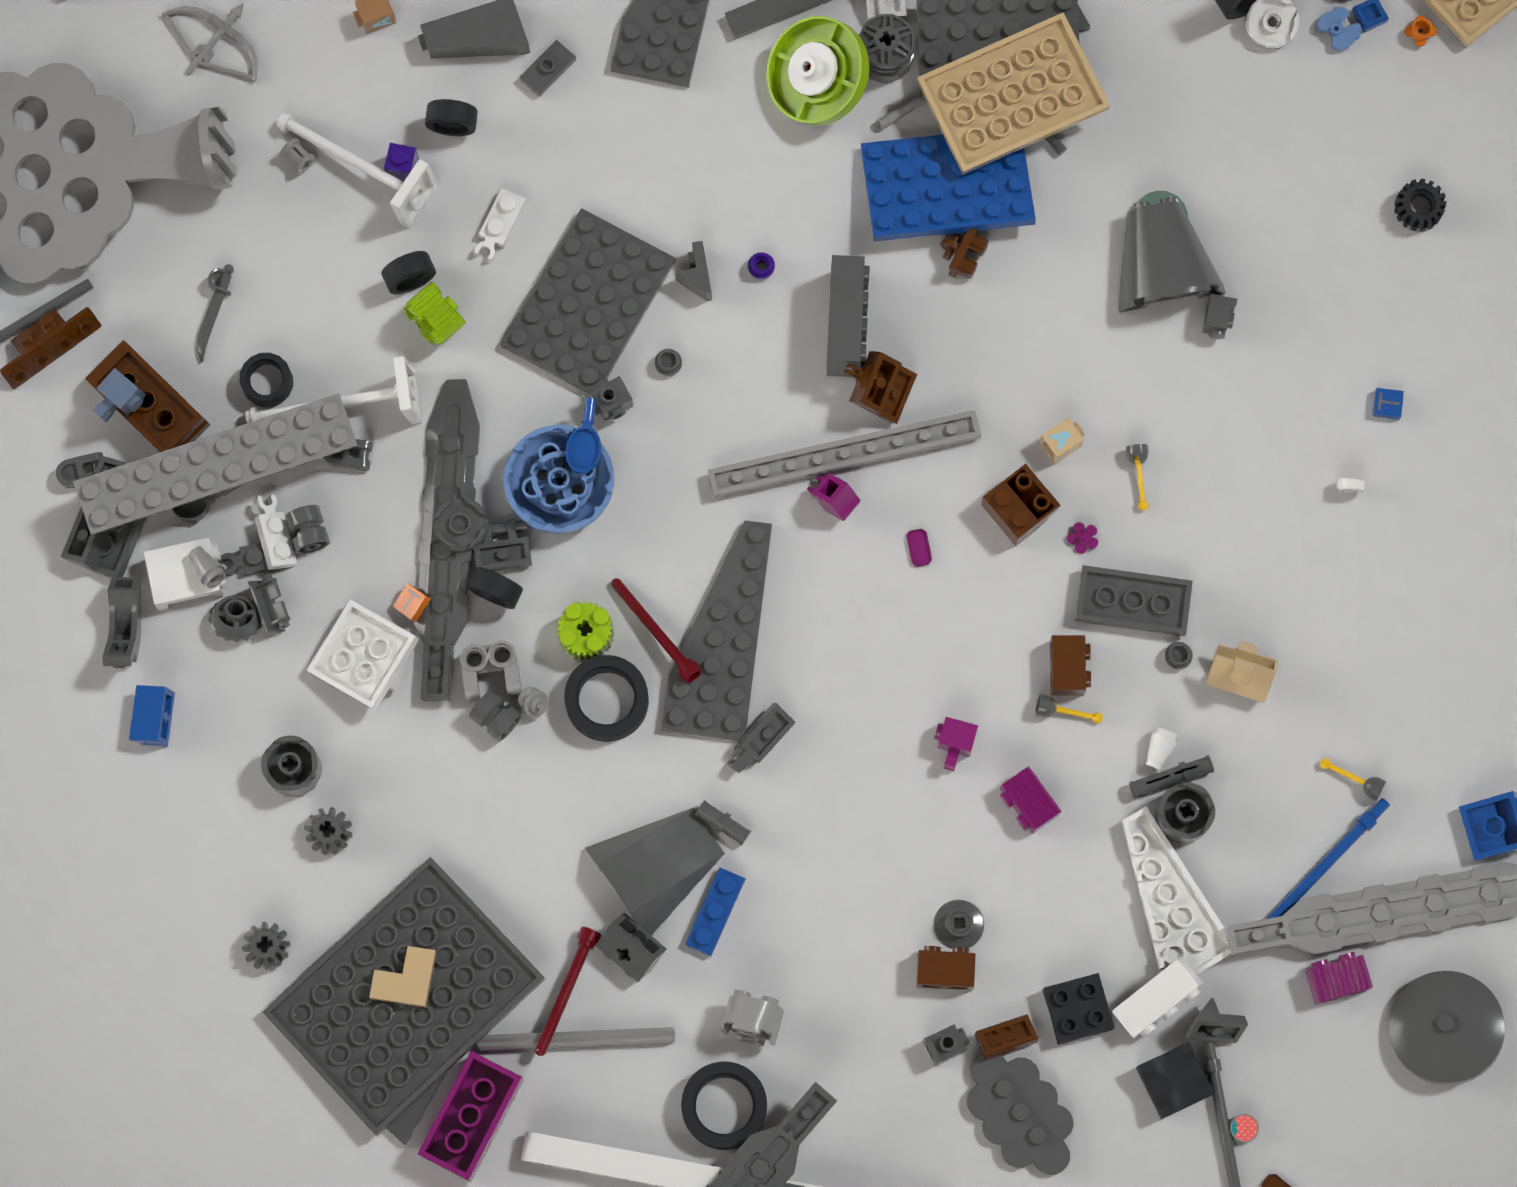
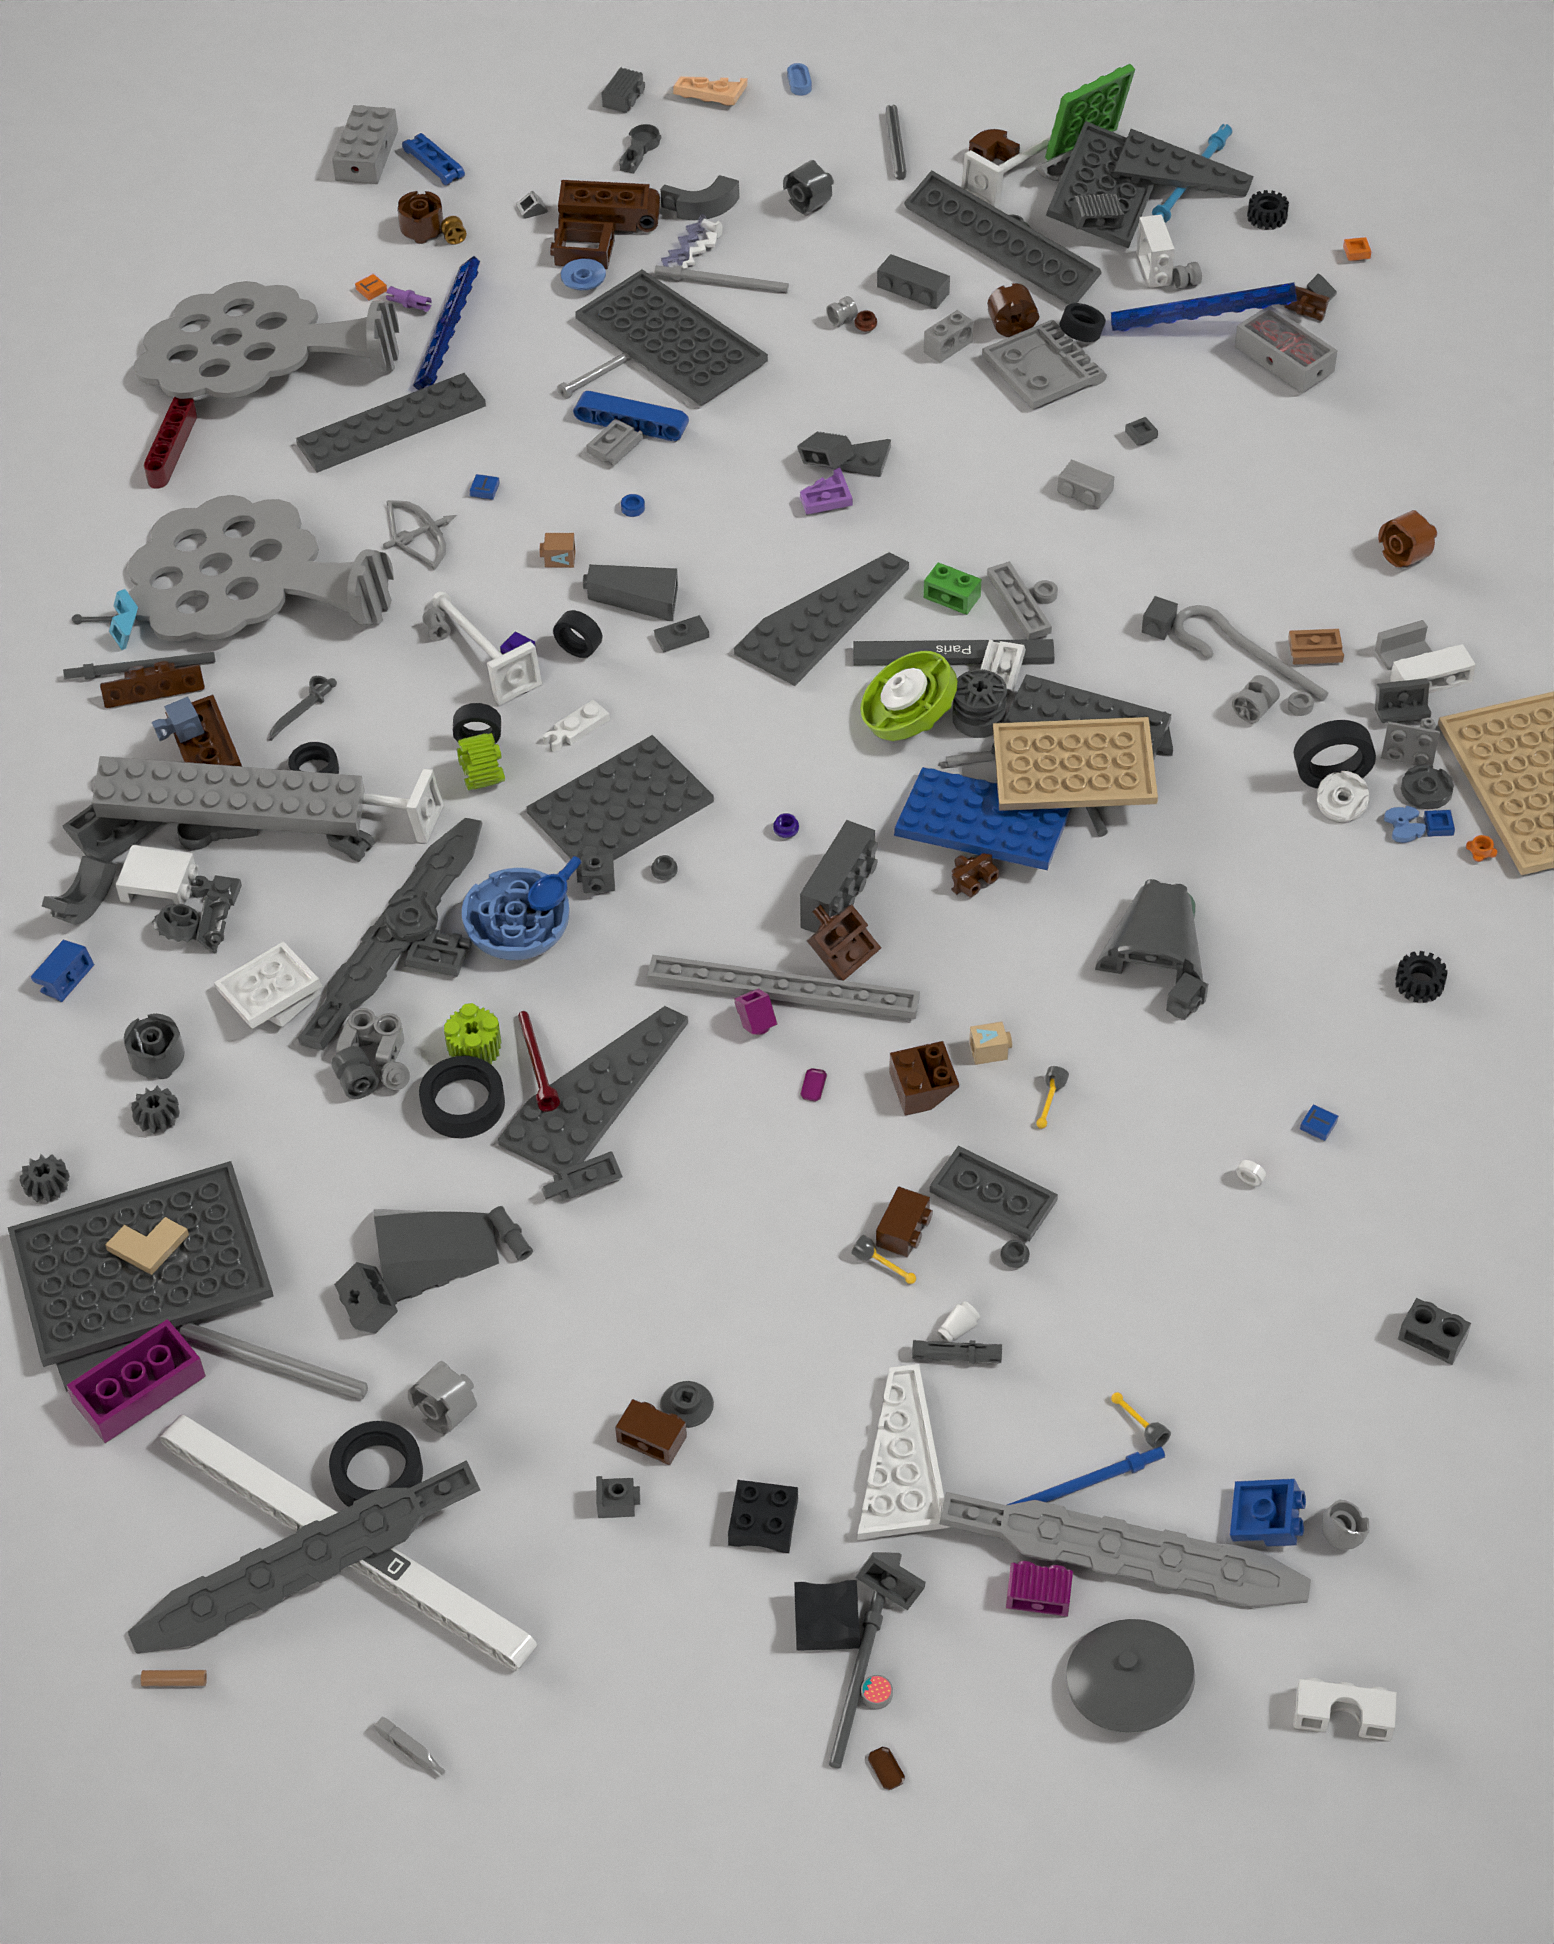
camera: 25 degrees right, 25 degrees down
(207, 568) = (175, 870): light grey cone -> none
(274, 534) = (249, 876): white plate -> none
(307, 527) = (279, 879): dark grey wheel -> none
(411, 602) = (335, 964): orange tile -> none
(495, 588) = (412, 973): black tyre -> none
(587, 940) = (326, 1284): dark red piece -> none
(697, 278) = (725, 812): dark grey slope -> none
(715, 912) = (462, 1305): blue plate -> none
(956, 738) = (764, 1243): magenta brick -> none
(1006, 1037) = (679, 1512): reddish brown plate -> none
(1020, 1113) = (658, 1589): dark grey plate -> none
(1029, 800) = (808, 1318): magenta brick -> none
(1083, 537) = (972, 1128): magenta plant -> none
(1158, 998) = (845, 1528): white brick -> none
(1200, 808) = (953, 1382): dark grey brick -> none
(1242, 671) = (1069, 1284): tan piece -> none

